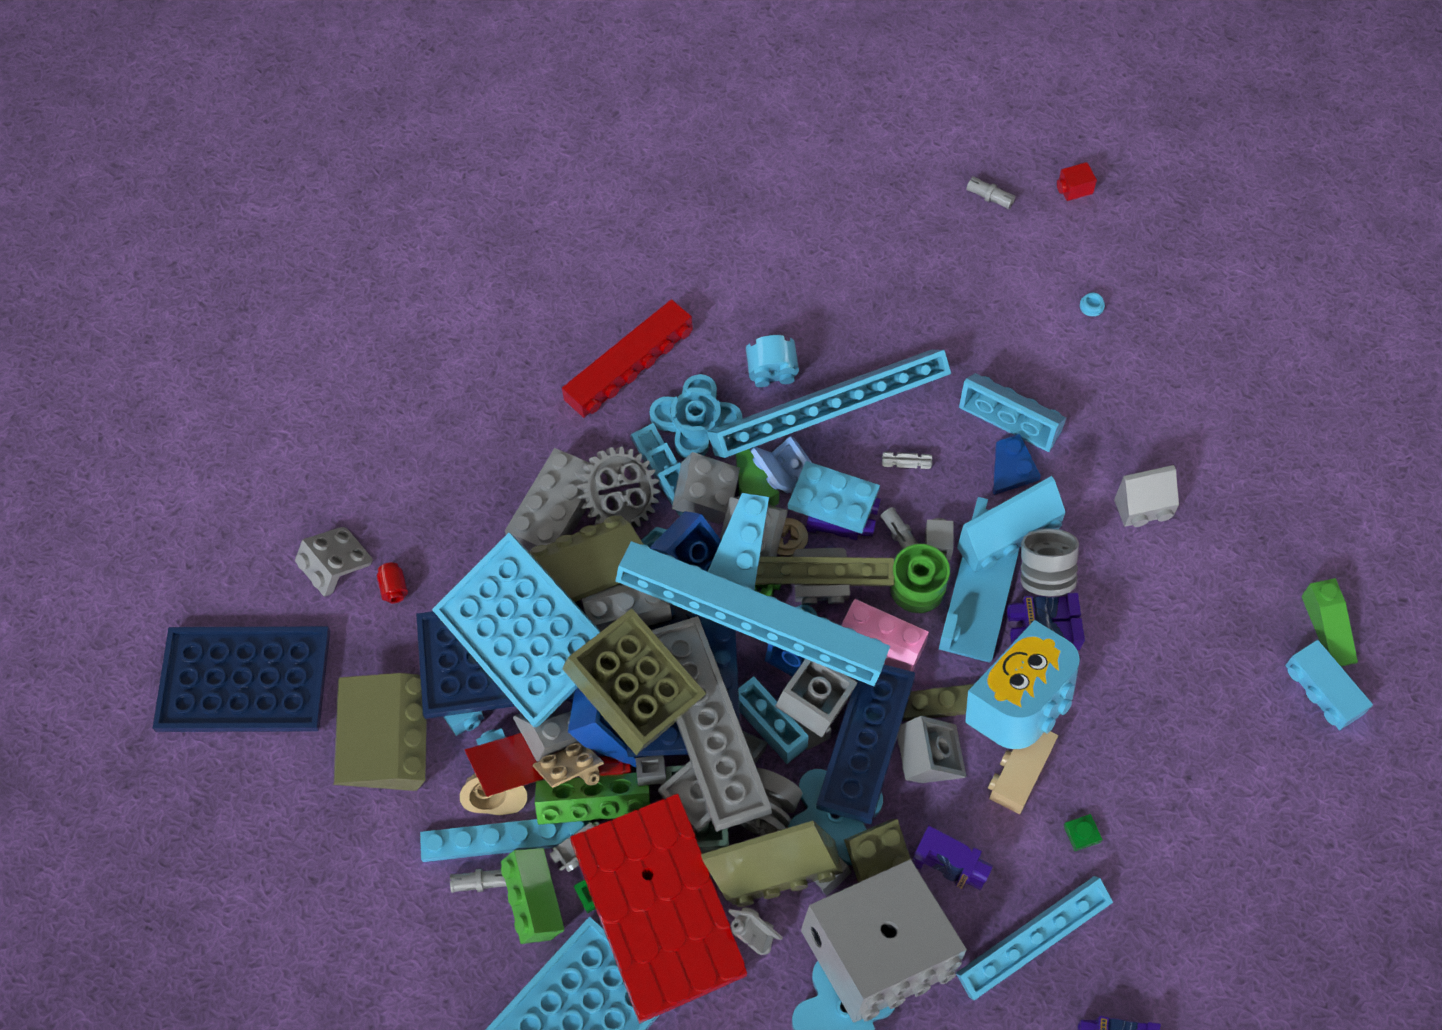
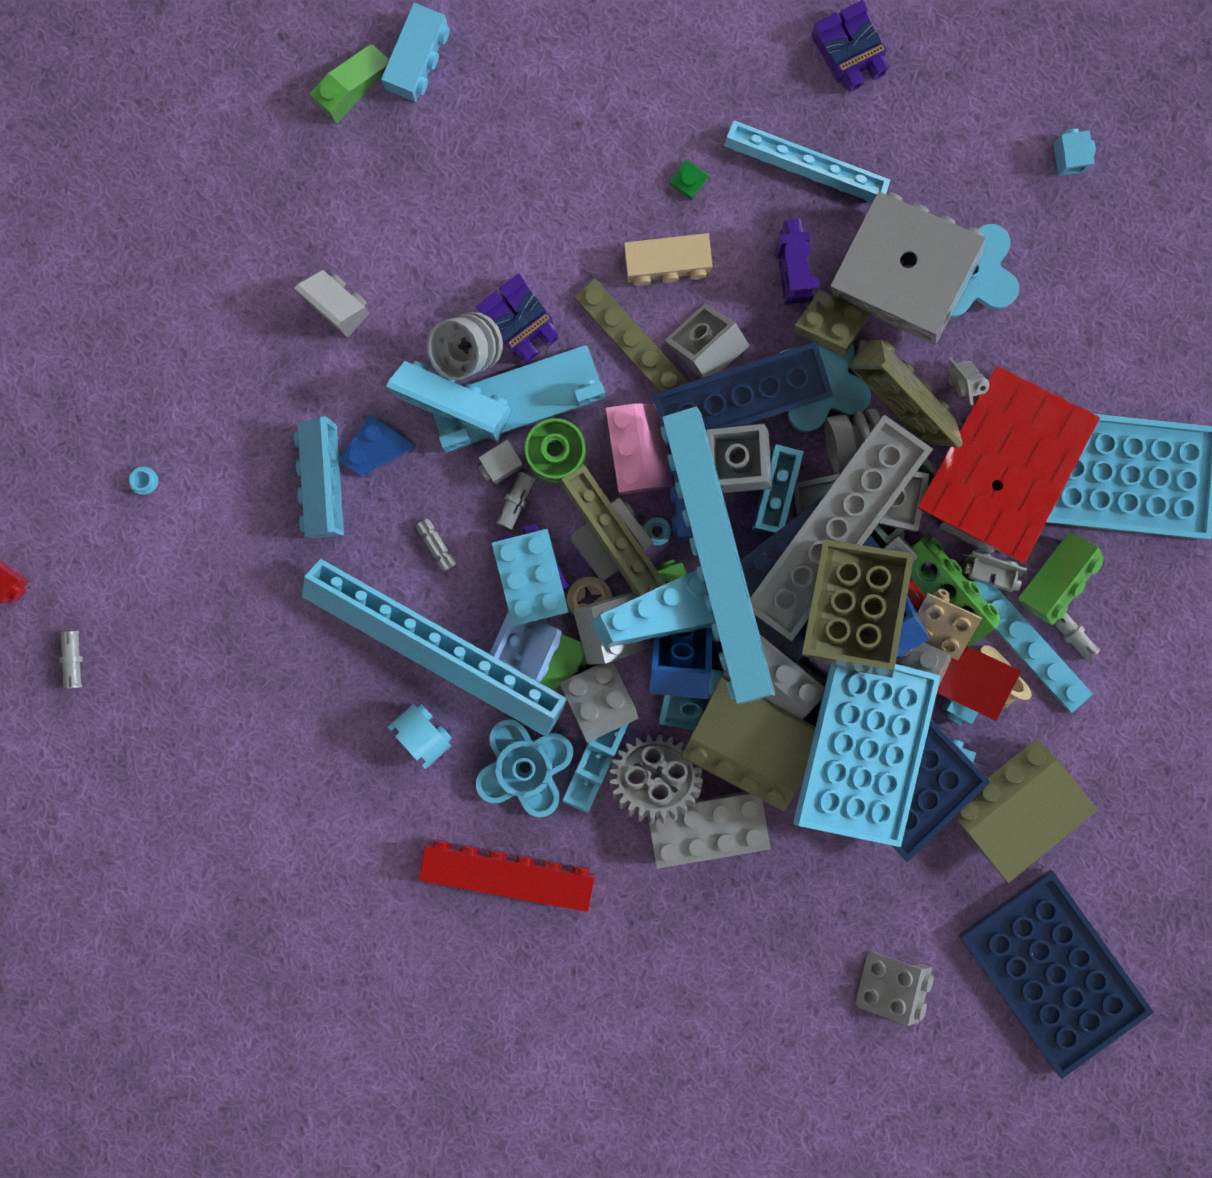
camera: 125 degrees left, 25 degrees up
(391, 583) = (881, 915): red brick -> none
(1025, 689) = (607, 285): medium azure brick -> none

